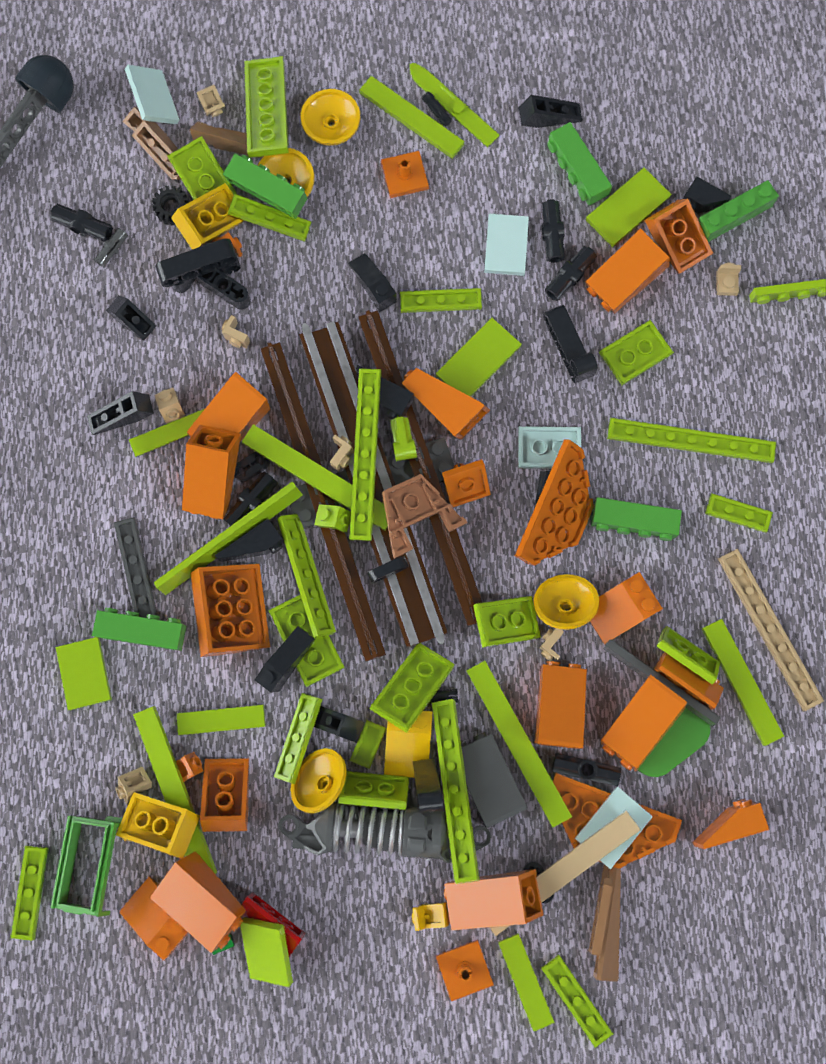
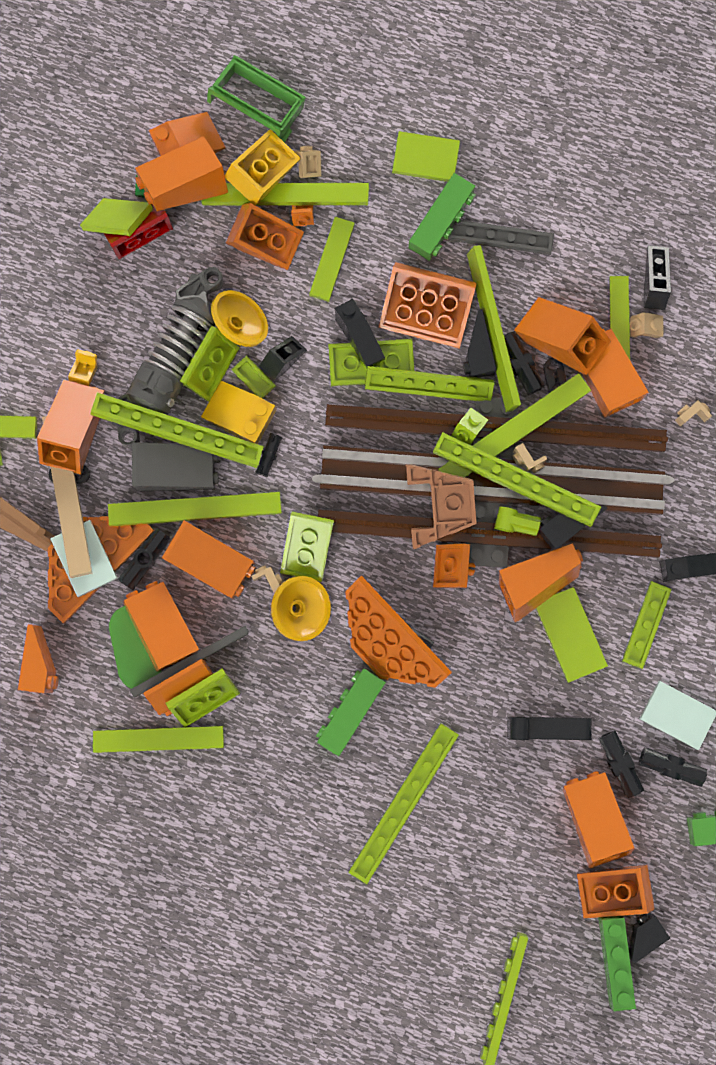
camera: 110 degrees right, 5 degrees up
(29, 893) = (256, 44): lime tile -> none
(298, 738) = (285, 318): lime tile -> none
(387, 569) = (399, 455): black beam -> none
(412, 687) = (284, 435): lime tile -> none
(427, 785) = (190, 406): beam -> none
(464, 970) = (26, 379): orange tile -> none
(541, 445) = (461, 655): light aqua tile -> none
(624, 608) = (272, 660): orange slope -> none
(628, 207) = (668, 856): lime tile -> none
(636, 352) = (513, 791): lime tile -> none
(727, 279) = (549, 919): tan bracket -> none
(738, 513) = (314, 814): lime tile -> none
(771, 630) = (194, 789): tan tile -> none

